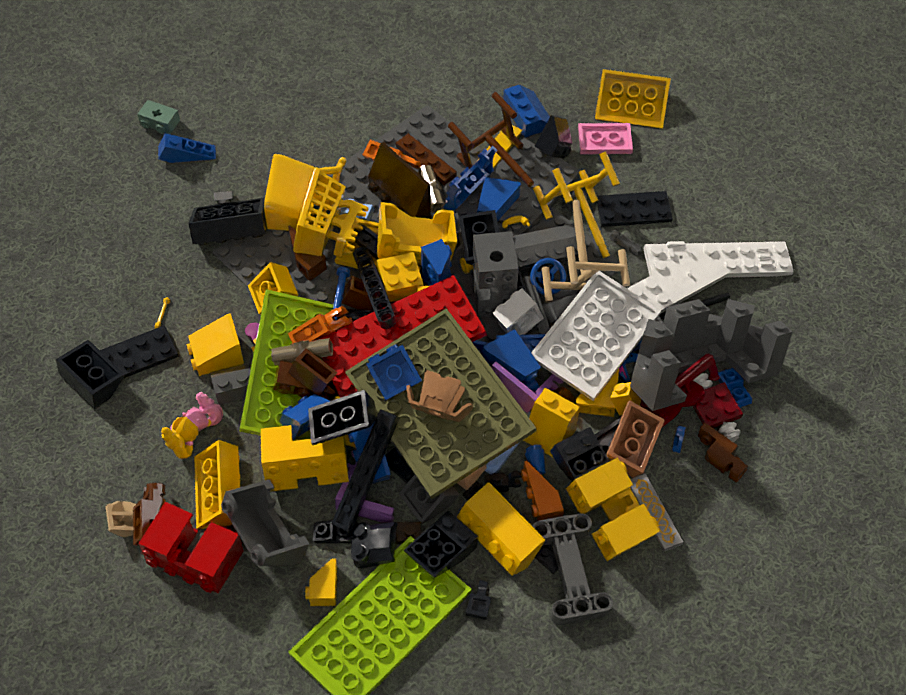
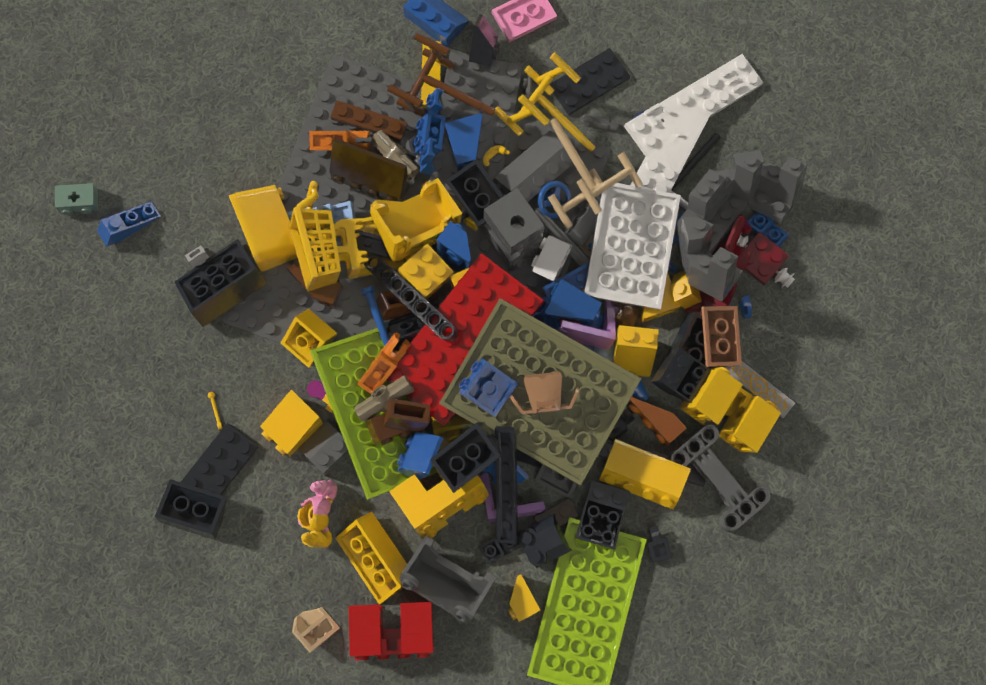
camera: 30 degrees left, 20 degrees up
(147, 509) = (331, 616): reddish brown plate -> none
(722, 453) = (788, 302): reddish brown plate -> none

